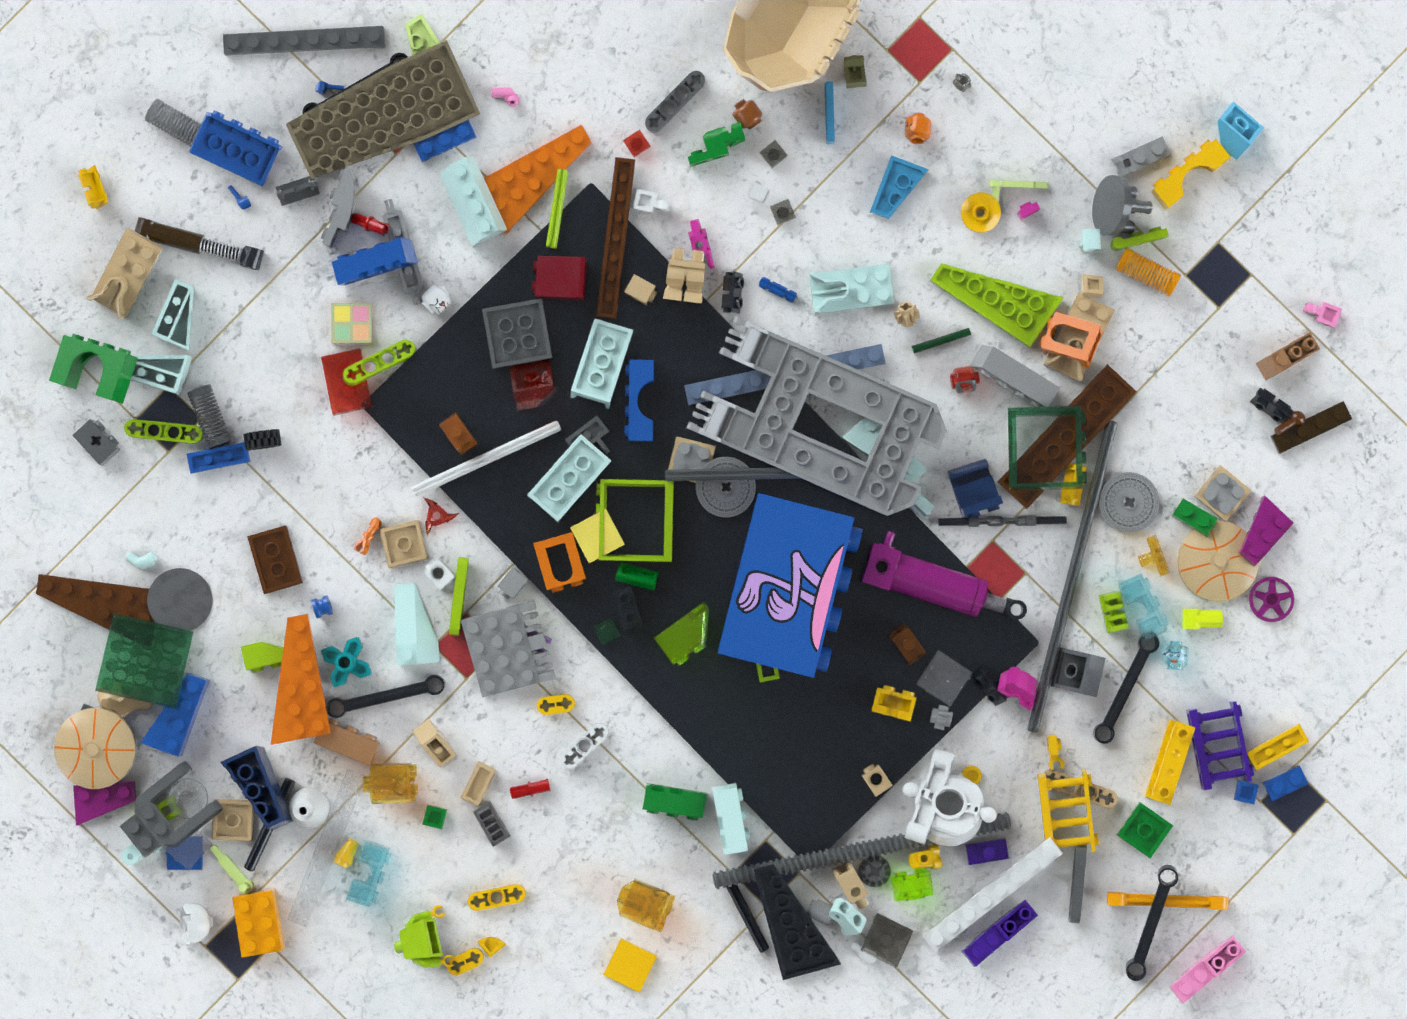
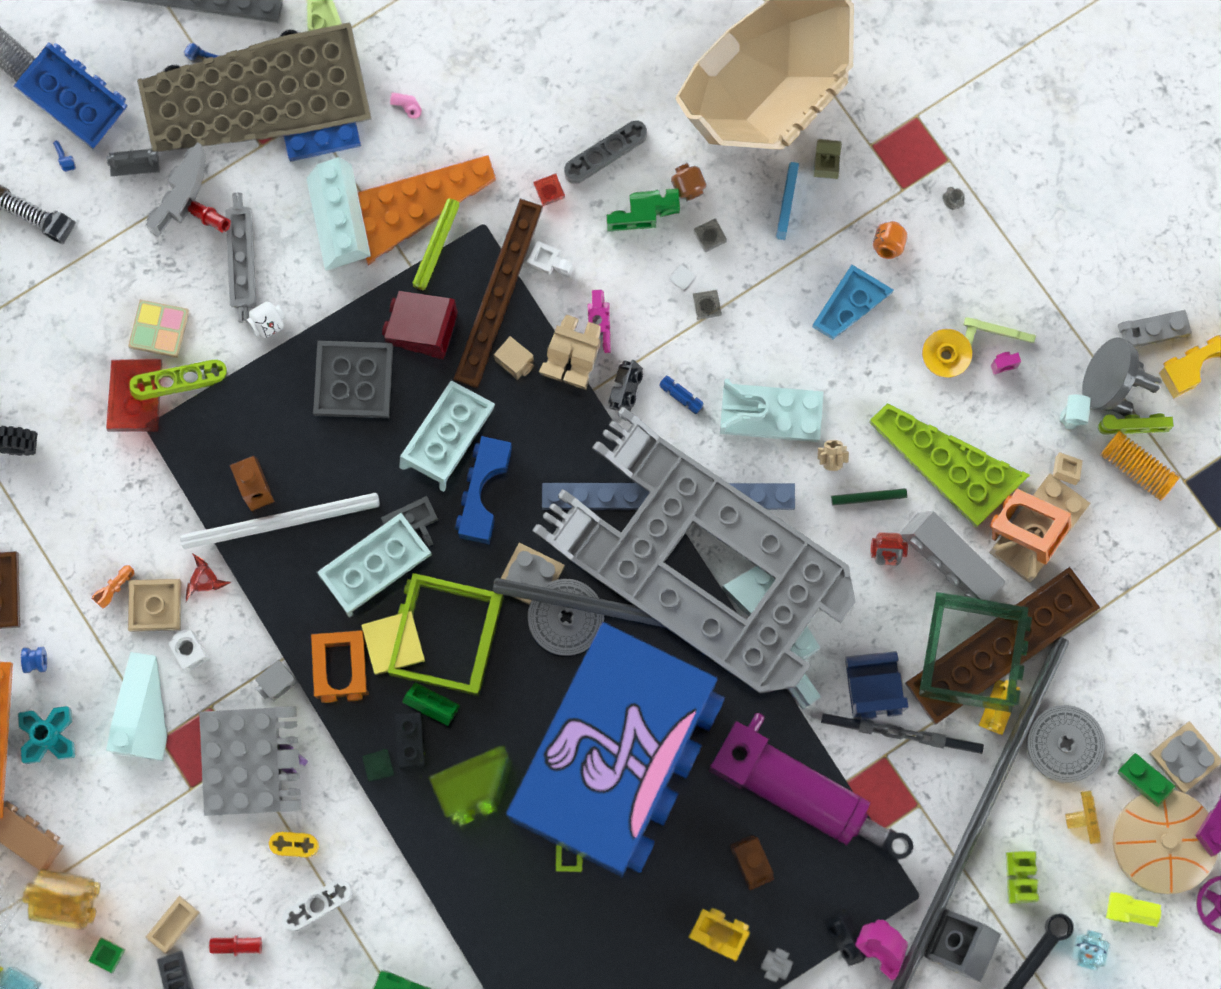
camera: 10 degrees right, 10 degrees down
(374, 261) = (203, 258): blue wedge -> none
(385, 696) = (83, 788): black piece -> none
(434, 743) = (129, 860): tan slope -> none
(458, 596) = (205, 682): lime beam -> none
(531, 383) = (355, 442): clear red slope -> none
(944, 678) = (790, 915): clear plate -> none
(1137, 590) = (1058, 856): clear light blue arch -> none

